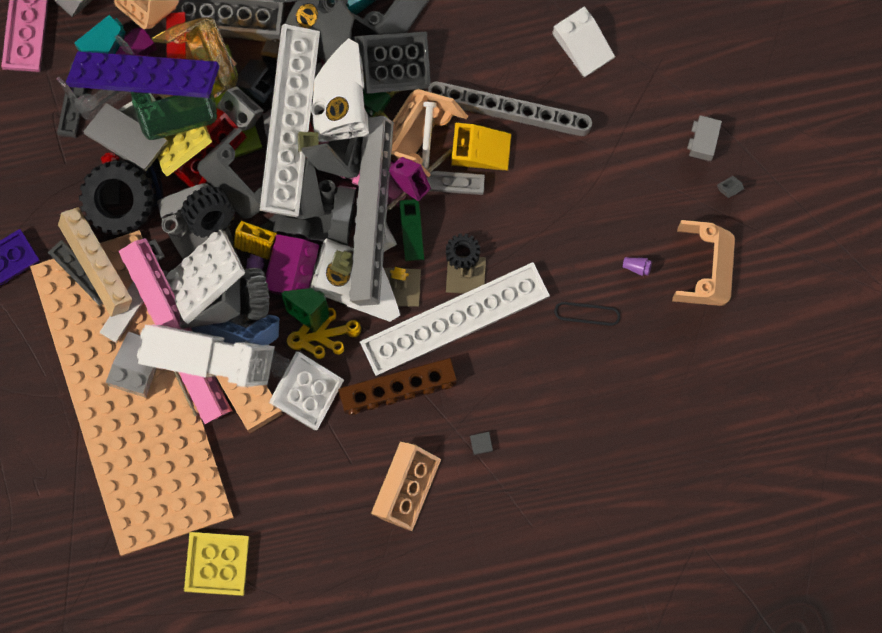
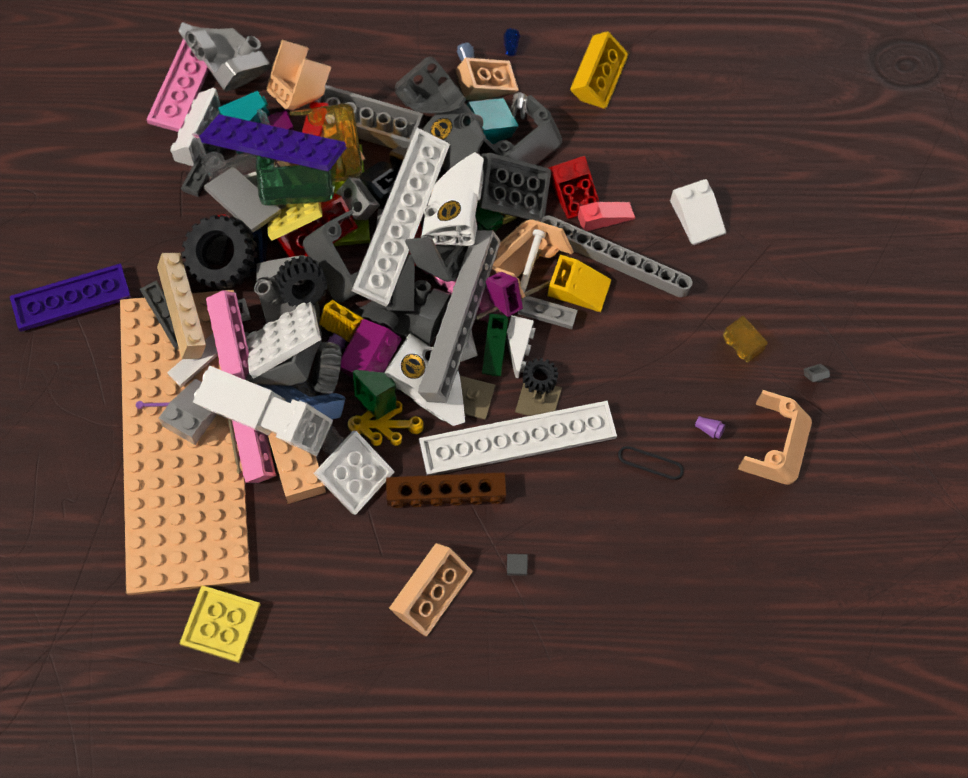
camera: 10 degrees right, 10 degrees down
(55, 64) = (203, 112): none -> white slope
(81, 370) = (140, 405): none -> medium lavender hinge
(307, 139) = (413, 232): olive tile -> none
(342, 262) = (419, 356): olive tile -> none
(399, 273) = (473, 383): yellow plate -> none
(432, 219) = (517, 340): none -> white slope
(453, 42) = (573, 185): none -> red slope
(490, 65) = (604, 214): none -> coral slope
(654, 168) = (744, 339): none -> clear yellow brick
(705, 138) = (799, 324): light grey brick -> none

